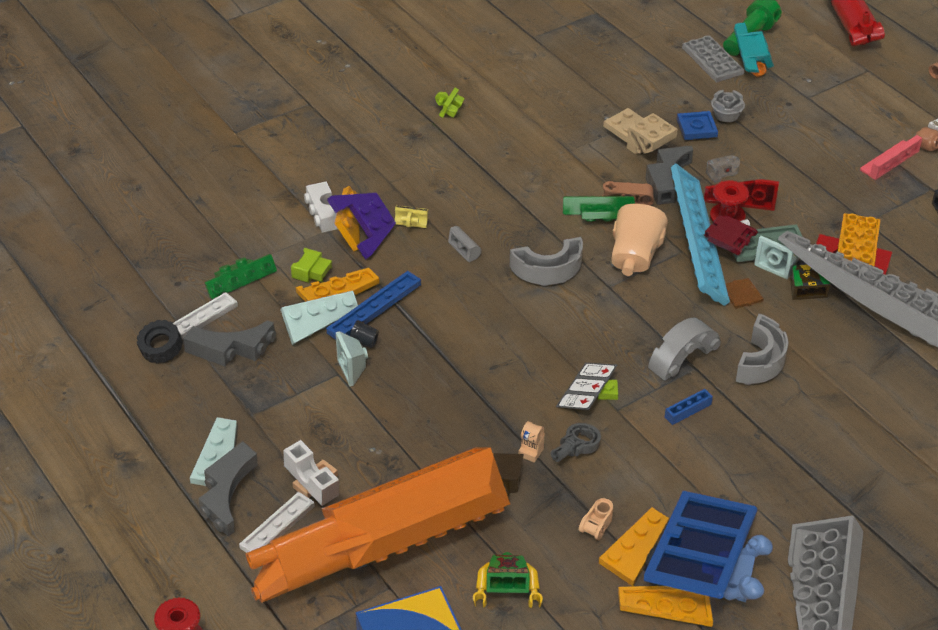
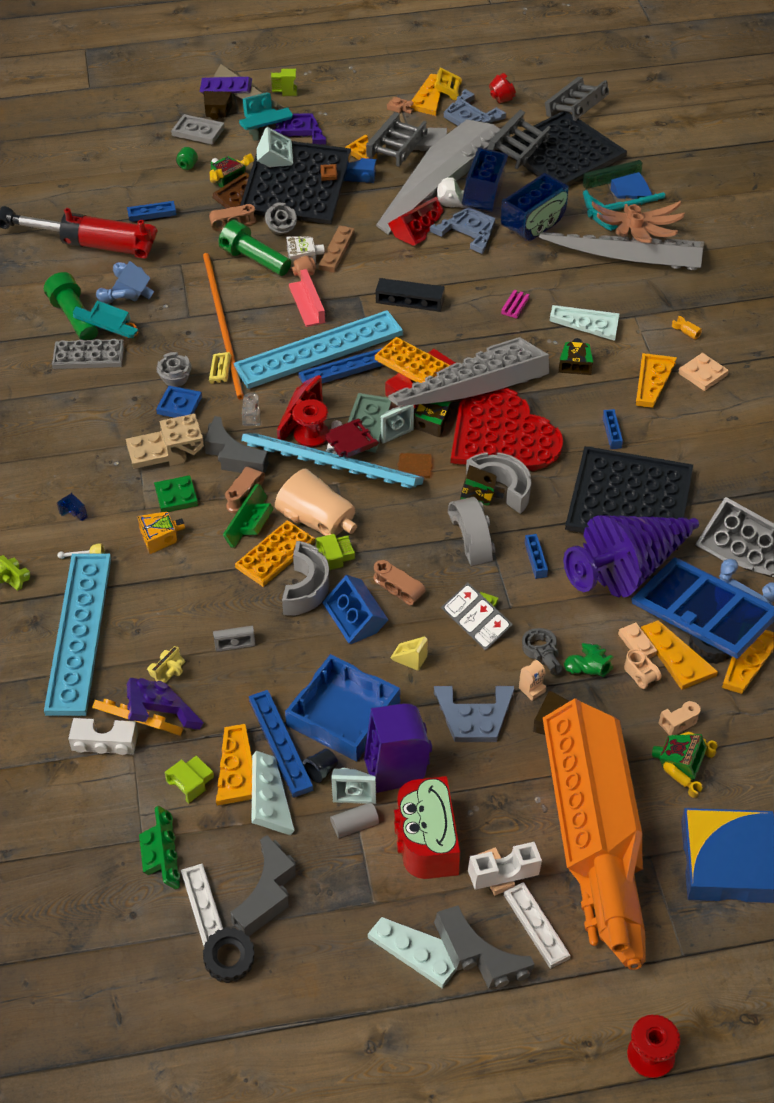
camera: 65 degrees left, 5 degrees up
(322, 375) = (354, 820): none -> light grey brick
(331, 414) = (427, 829): none -> brick
(389, 359) = (396, 746): none -> dark purple brick
(415, 159) = (78, 636): none -> medium azure plate
(429, 330) = (338, 706): none -> blue tile
(471, 424) = (474, 721): none -> sand blue wing
(502, 138) = (95, 549): none -> hinge
(515, 358) = (411, 653): none -> light yellow slope
(538, 109) = (73, 505): none -> clear blue bracket
(541, 304) = (354, 610): none -> blue slope
(545, 163) = (159, 530): none -> light orange torso
(556, 566) = (679, 719): none -> light nougat leg
(582, 482) = (593, 663): none -> green animal
(588, 321) = (398, 582): none -> nougat piece
(595, 241) = (273, 553): none -> light orange tile
(596, 160) = (176, 494): none -> green plate
(597, 271) = (335, 550): none -> lime piece
(632, 511) = (636, 639): none -> light nougat plate
(721, 452) = (624, 551): none -> dark purple plant
(738, 335) = (481, 486): none -> dark brown torso
(758, 133) = (223, 367): none -> light yellow tile
(805, 45) = (129, 285): none -> medium blue torso
(814, 202) = (342, 367): none -> blue plate
(815, 118) = (237, 384): none -> orange piece
(817, 455) = (627, 486): none -> black plate
(830, 338) = (504, 425): none -> red plate
(835, 184) = (317, 349): none -> medium azure plate
(901, 417) = (612, 429): none -> blue piece
(914, 28) = (151, 211): none -> blue plate
(919, 86) = (237, 239): none -> green piece

